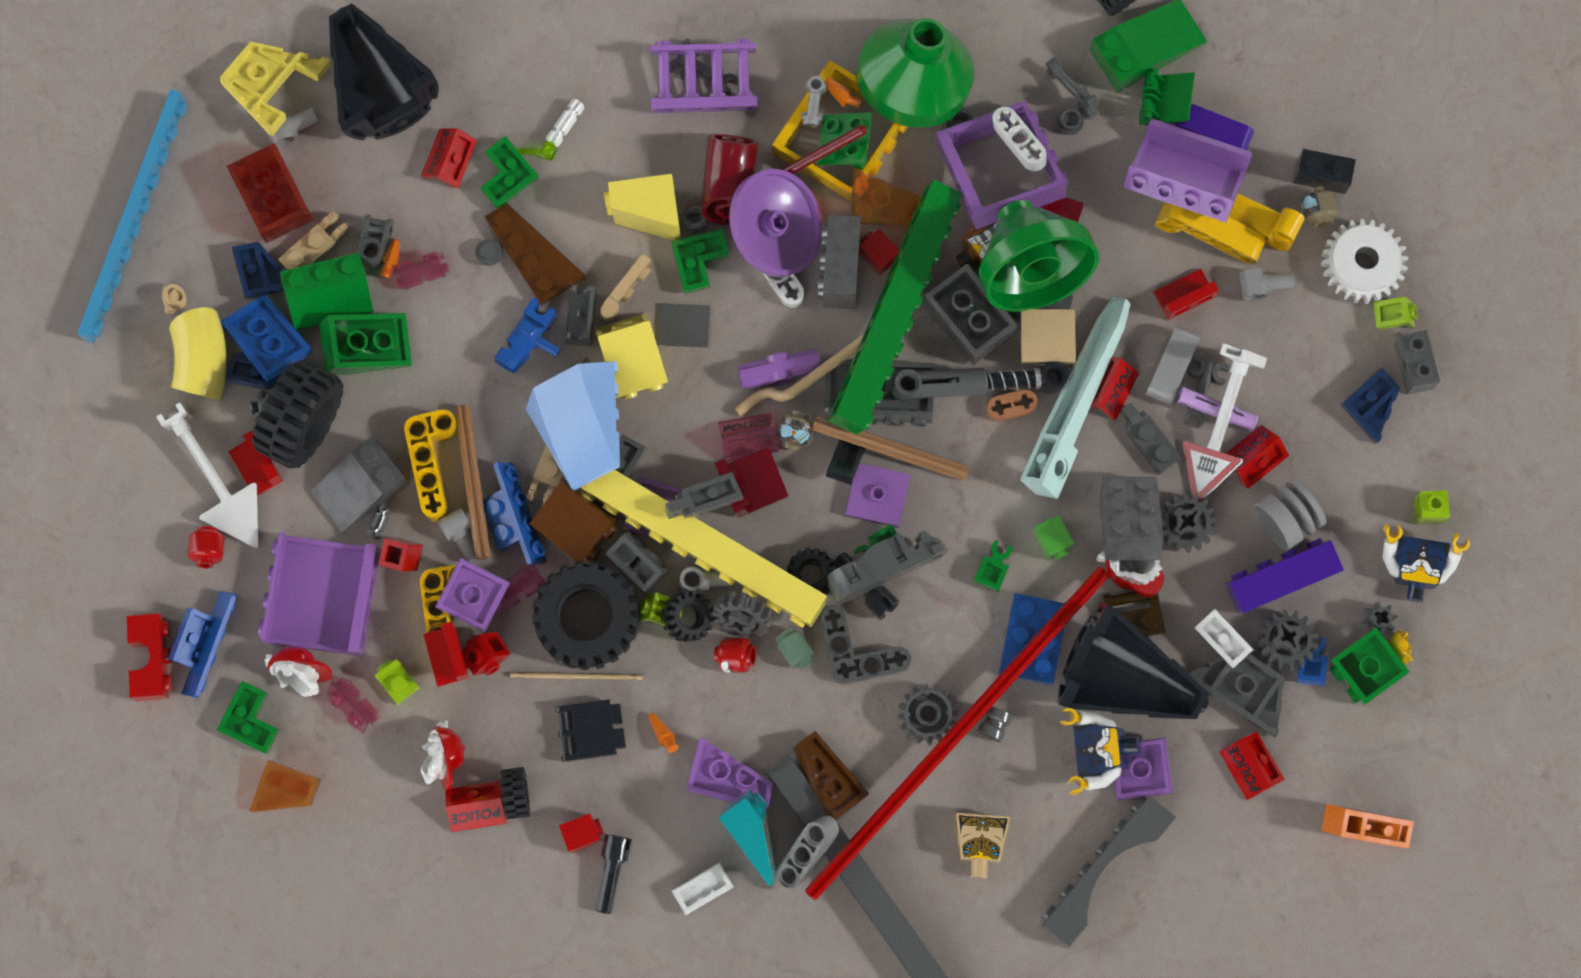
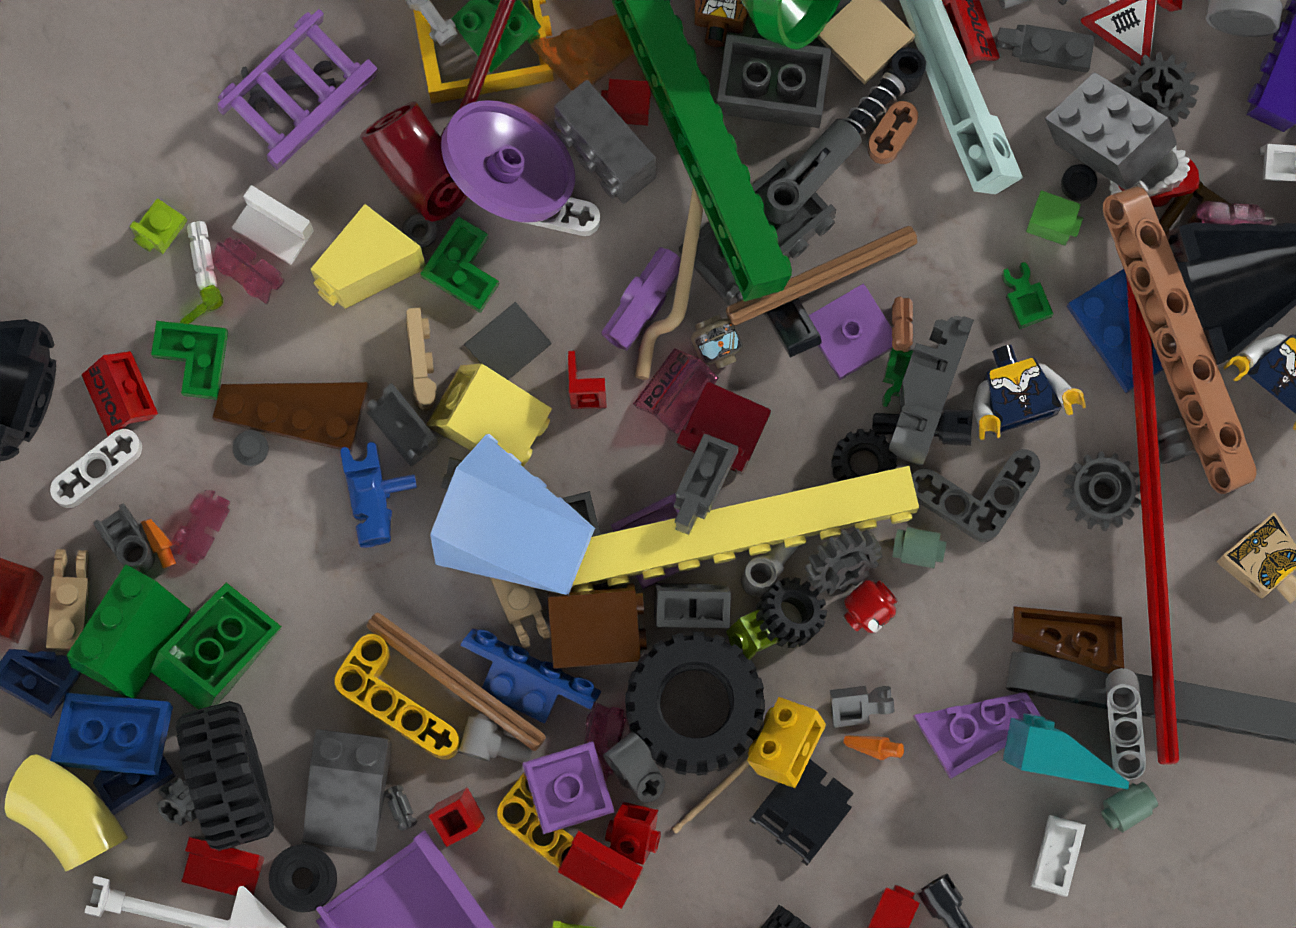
camera: 45 degrees left, 0 degrees up
(275, 510) = (288, 863): none -> black tyre
(417, 182) = (82, 493): none -> white beam
(519, 619) = (635, 768): none -> dark grey piece
(556, 85) = (158, 227): none -> lime bracket
(579, 141) = (235, 260): none -> clear pink hinge
(614, 683) = (786, 742): none -> yellow brick
(618, 142) = (273, 225): none -> white panel
(673, 702) = (854, 705): none -> dark grey plate
(691, 384) = (585, 392): none -> red panel
(767, 900) = (1129, 806): none -> sand green brick
(908, 516) = (903, 328): none -> nougat piece
(933, 617) = (1020, 394): none -> torso
(1051, 670) = (1179, 339): none -> nougat beam
(1089, 532) = (1079, 182): none -> black tile
(1163, 637) = (1240, 213): none -> clear pink hinge

